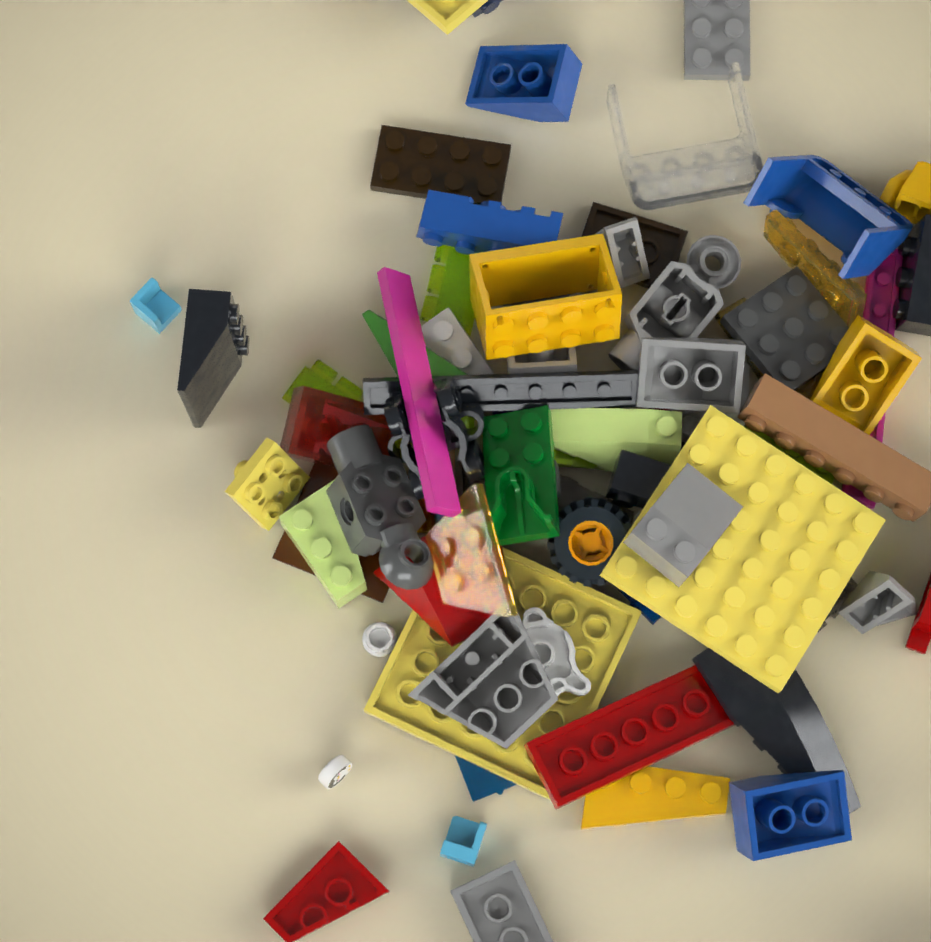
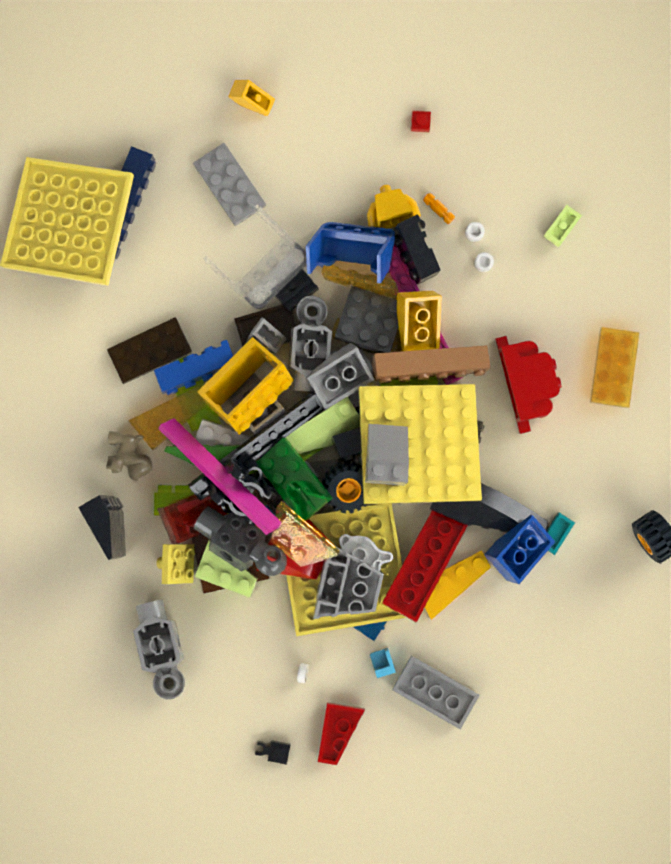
camera: 40 degrees left, 10 degrees up
(154, 306) = (62, 513): medium azure panel -> none
(154, 586) = (159, 648): none -> light grey brick
(213, 862) = (277, 752): none -> black plate
(310, 308) = (137, 464): none -> dark tan animal
(379, 639) = (280, 597): white plate -> none
(430, 272) = (181, 408): none -> clear yellow wing
(525, 81) = (160, 280): blue slope -> none
(711, 217) = (296, 290): none -> black plate
(867, 832) = (559, 530): none -> teal tile
(877, 602) = (493, 425): light grey slope -> none

